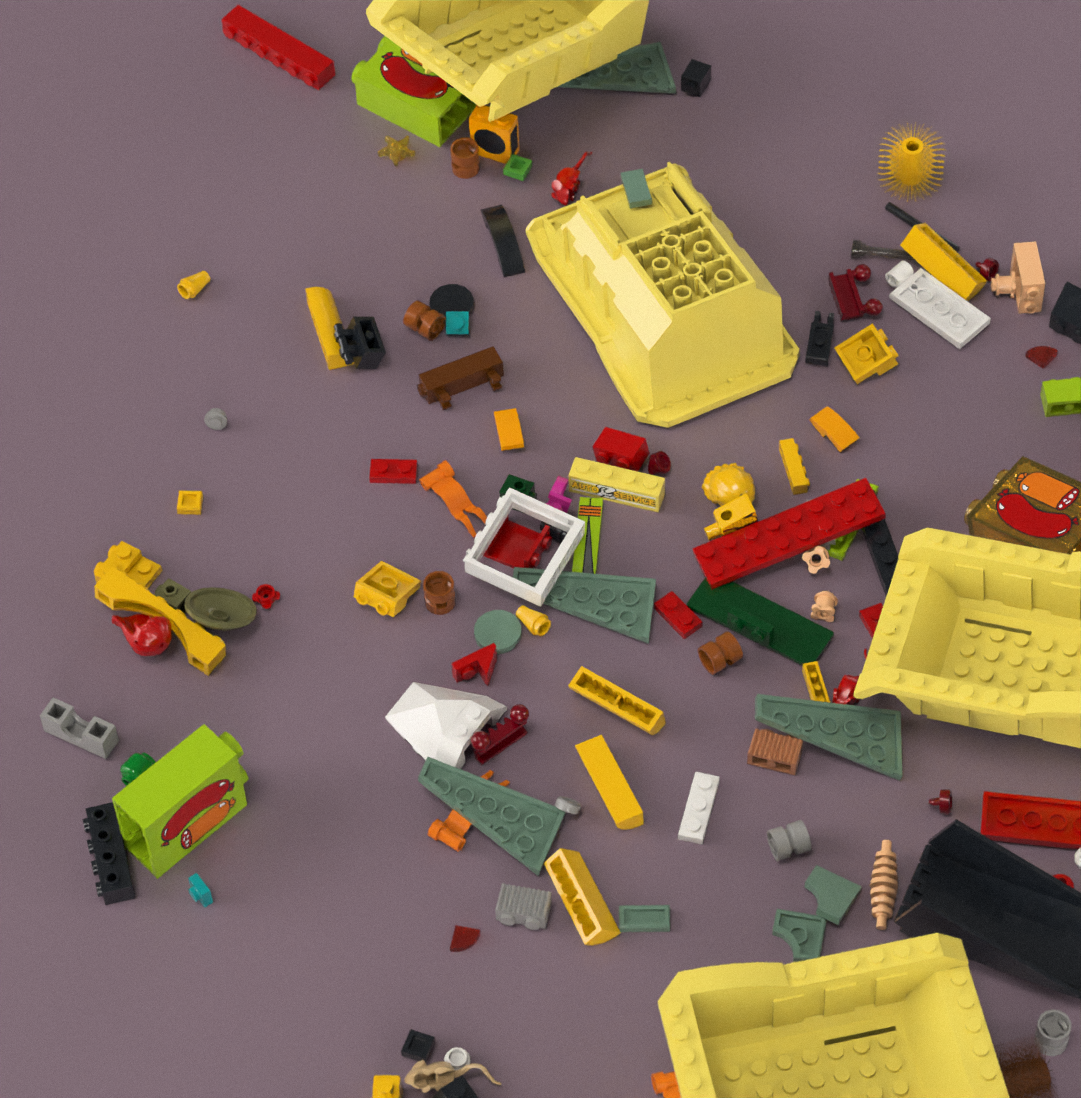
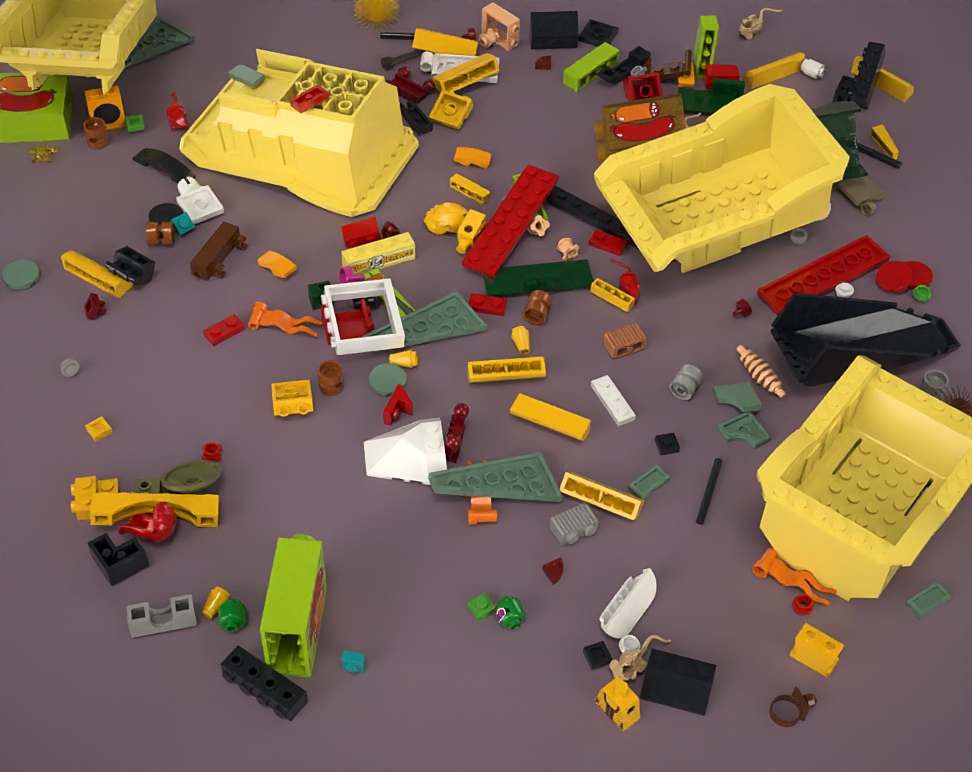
camera: 45 degrees left, 5 degrees down
(87, 648) = (117, 561): none -> black brick
(139, 744) = (214, 600): none -> yellow cone
(260, 284) = (21, 274): none -> sand green tile
(292, 364) = (94, 306): none -> dark red tile
(362, 923) = (481, 607): none -> bright green plate
(377, 946) = (510, 612): none -> green head
(493, 1022) = (629, 604): none -> white brick
(495, 305) = (198, 201): none -> white plate
(568, 805) = (540, 447): light grey tile -> none
(649, 262) = (309, 99): none -> red plate
(670, 678) = (521, 339): none -> yellow cone
(696, 78) = (201, 25): black brick -> none
(705, 892) = (667, 444): none -> black plate
(710, 961) = (709, 491): none -> black bar
(851, 731) = (654, 302): sand green wing -> none
(924, 317) = (466, 73): none -> yellow brick

